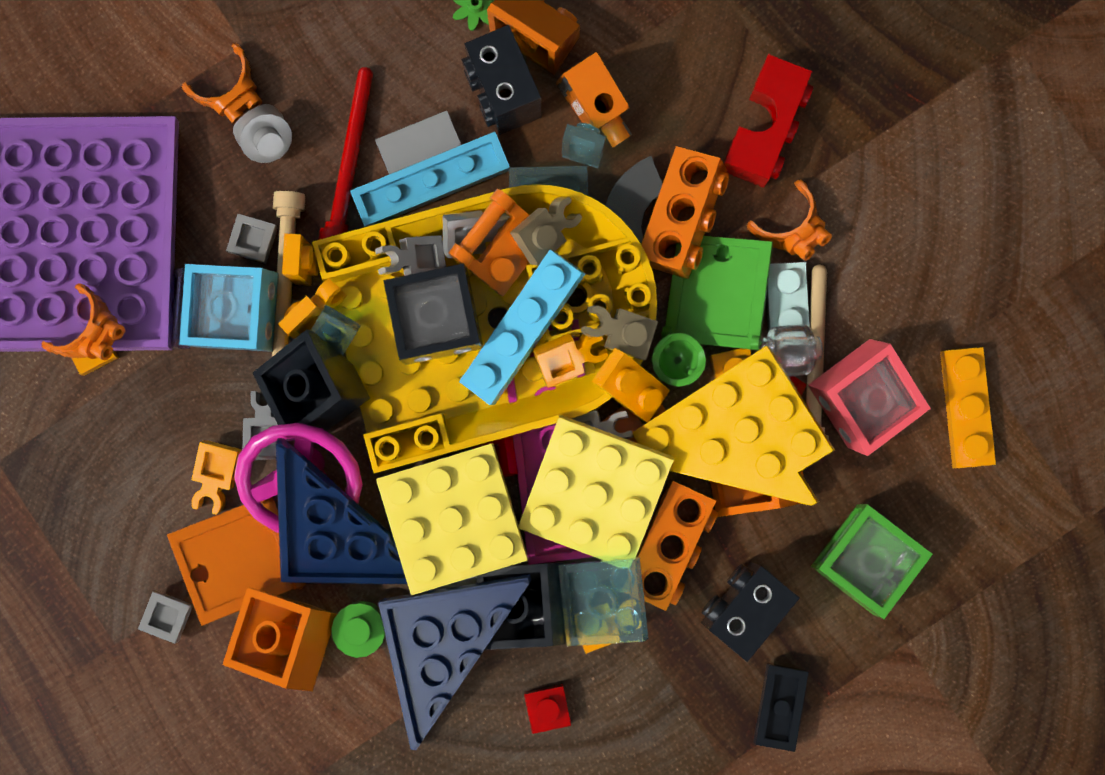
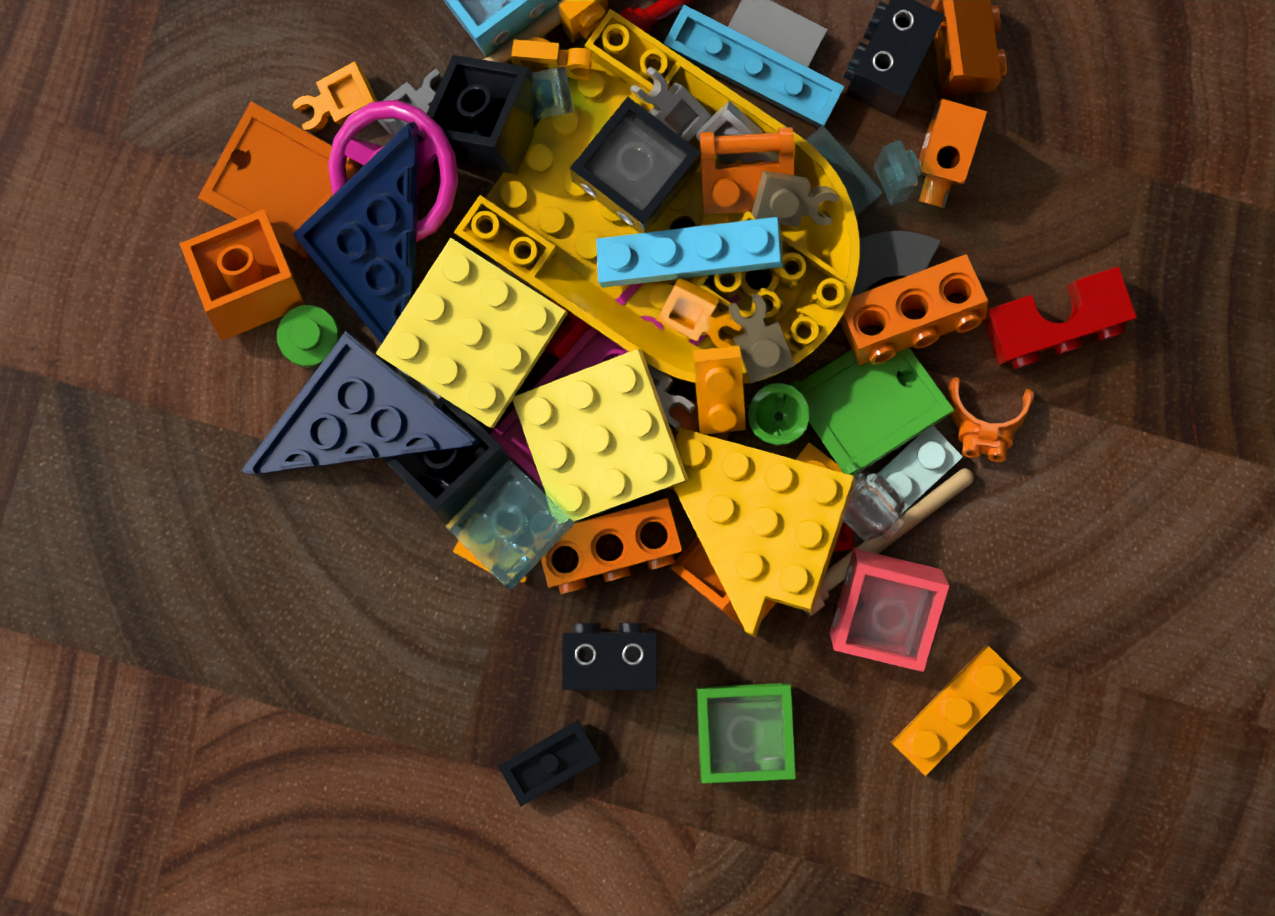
camera: 50 degrees right, 0 degrees up
(165, 617) = (179, 161): light grey plate -> none
(547, 709) = (376, 559): red plate -> none

